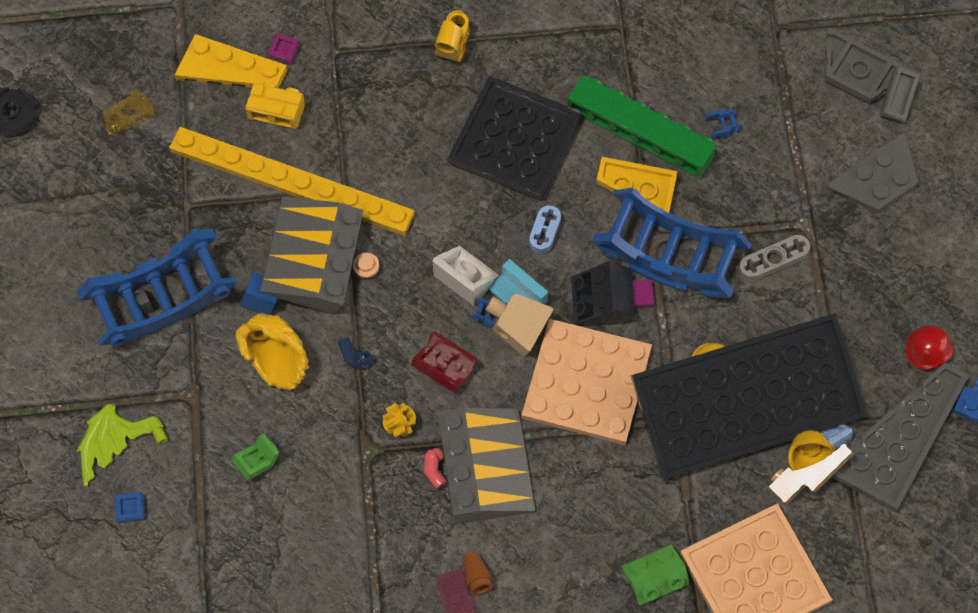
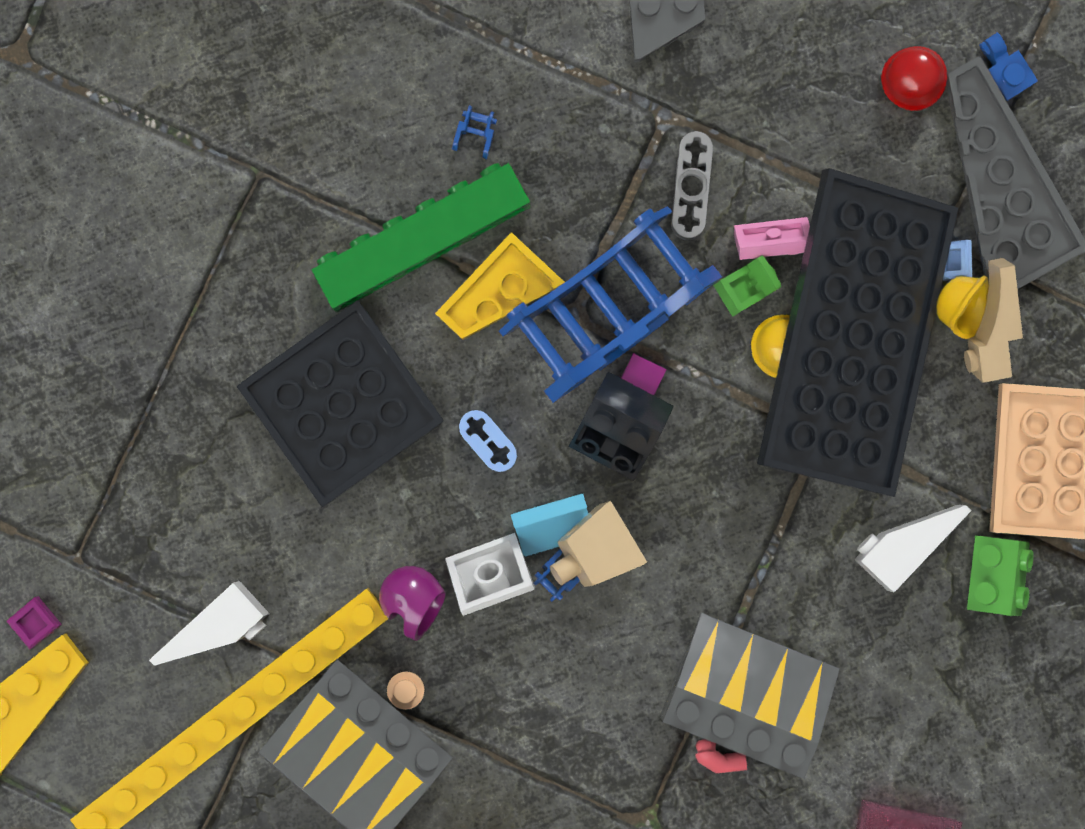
camera: 60 degrees left, 20 degrees up
(275, 105) = (113, 682): yellow brick -> none
(346, 143) = (222, 622): none -> white slope
(352, 357) = (519, 774): dark blue arm -> none
(399, 420) = (637, 768): yellow gear -> none
(426, 229) = (414, 596): none -> magenta helmet
(445, 362) = (595, 671): dark red bracket -> none
(452, 38) = (158, 404): yellow piece -> none
(476, 574) = (879, 784): dark orange cone -> none
(586, 381) = (715, 510): light nougat plate -> none
(636, 503) = (901, 550): none -> white slope
(735, 320) = (747, 285): none -> bright green bracket
(767, 312) = (771, 238): none -> bright pink plate

